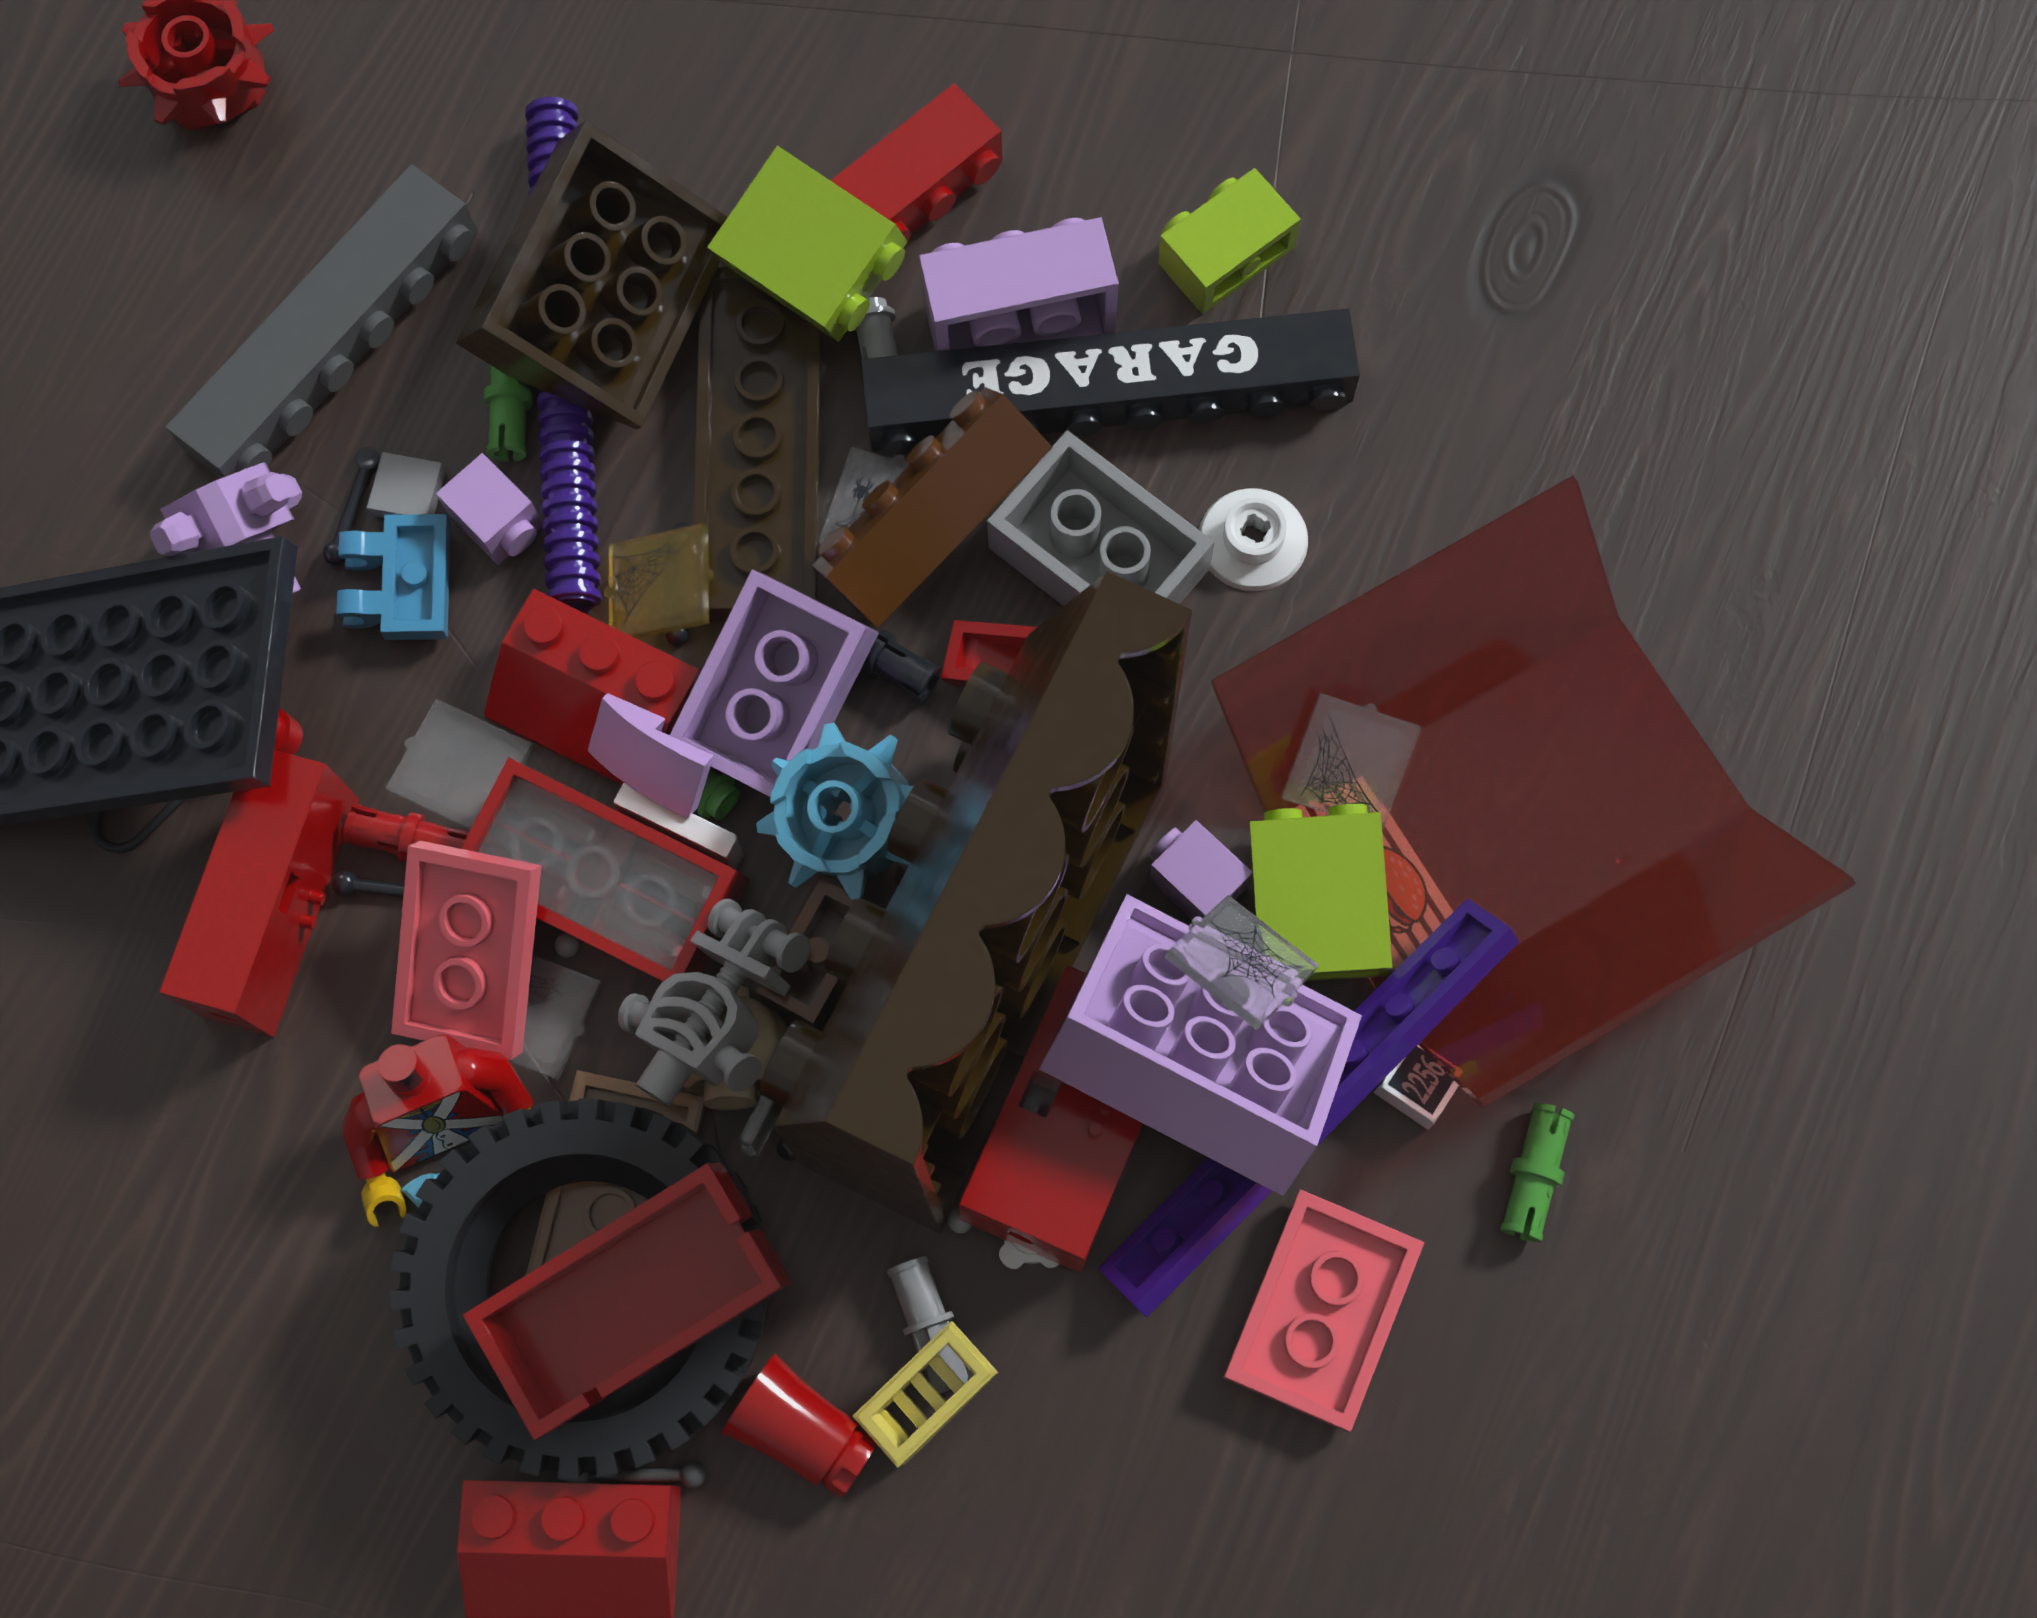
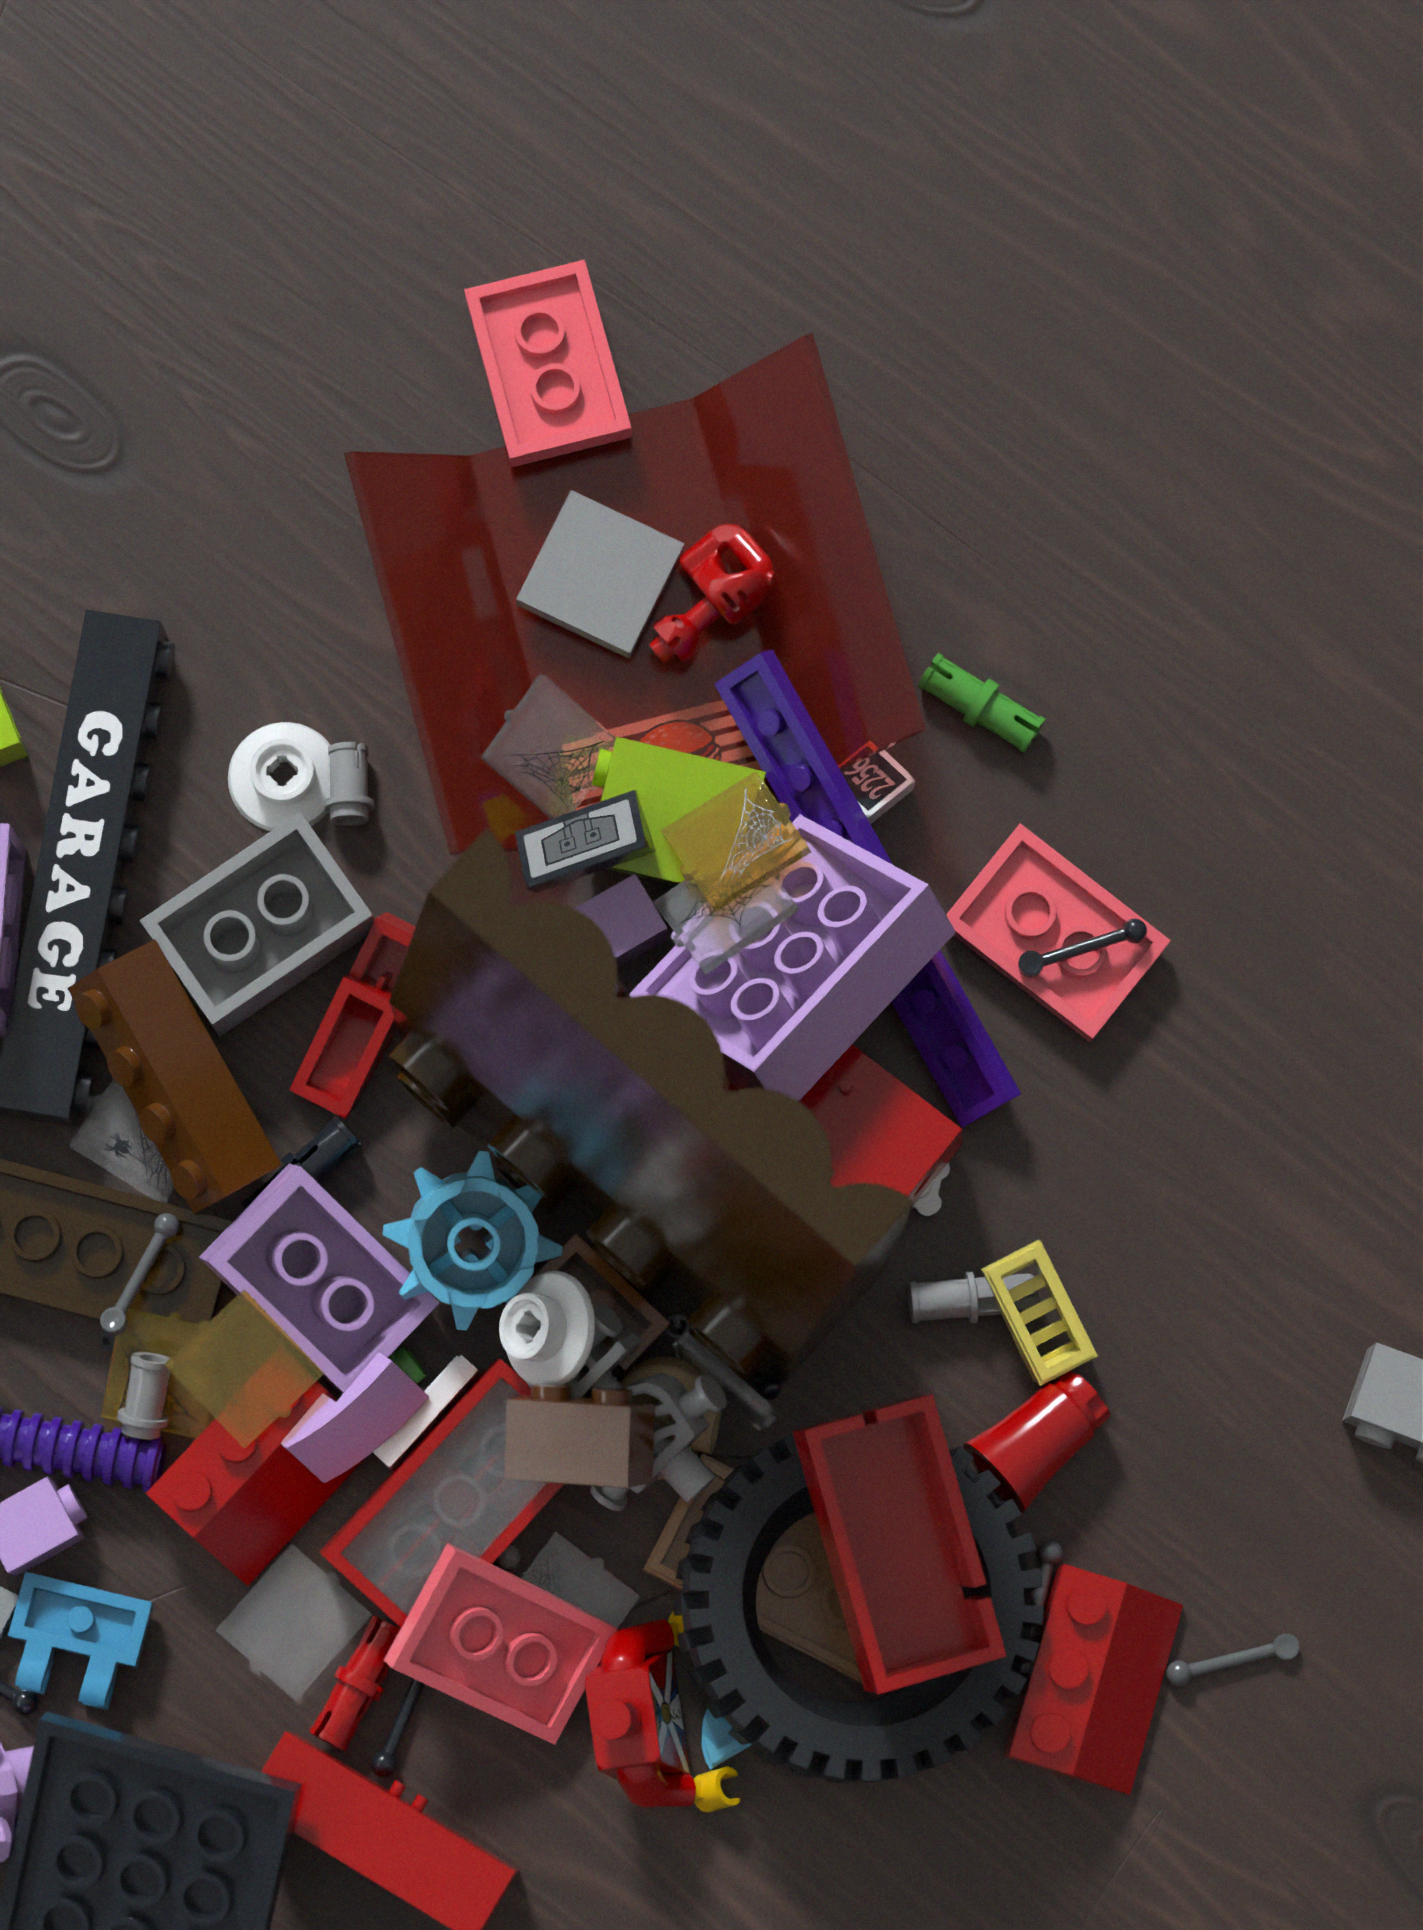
camera: 80 degrees left, 5 degrees up
(614, 572) = (146, 1397): none -> light grey pin
(663, 634) = (244, 1368): none -> clear yellow piece
(666, 958) = (579, 1439): none -> reddish brown brick
(690, 519) = (114, 1319): none -> dark grey hinge
(771, 901) = (566, 1330): none -> white piece
(1261, 593) = (348, 784): none -> light grey pin
(1265, 810) = (583, 842): none -> slope
(1282, 1293) = (1032, 963): none -> black hinge
(1310, 953) = (735, 841): none -> clear yellow piece
(1542, 764) = (600, 574): none -> light grey tile
(1563, 882) = (724, 593): none -> red piece
(1734, 658) = (548, 363): none -> coral plate

